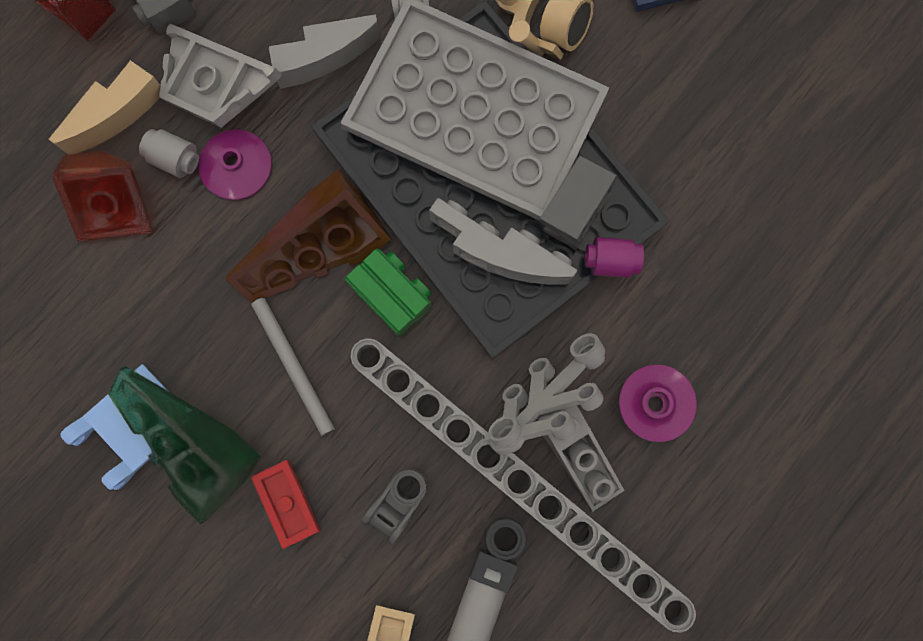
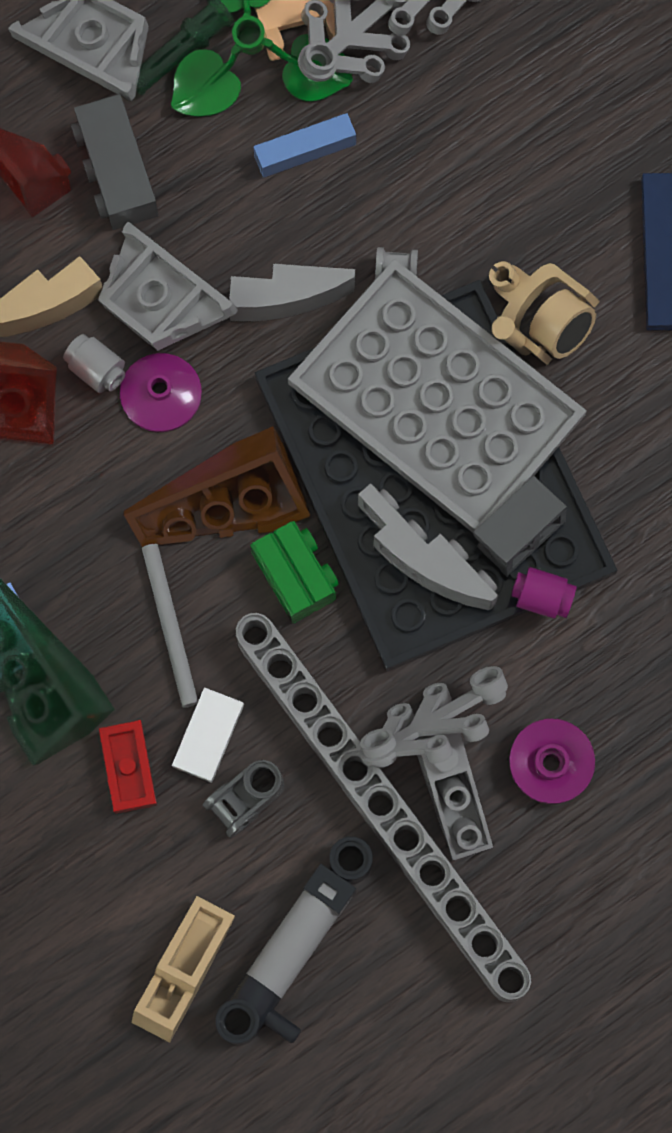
camera: 15 degrees right, 5 degrees down
(350, 456) = (208, 735): none -> white tile

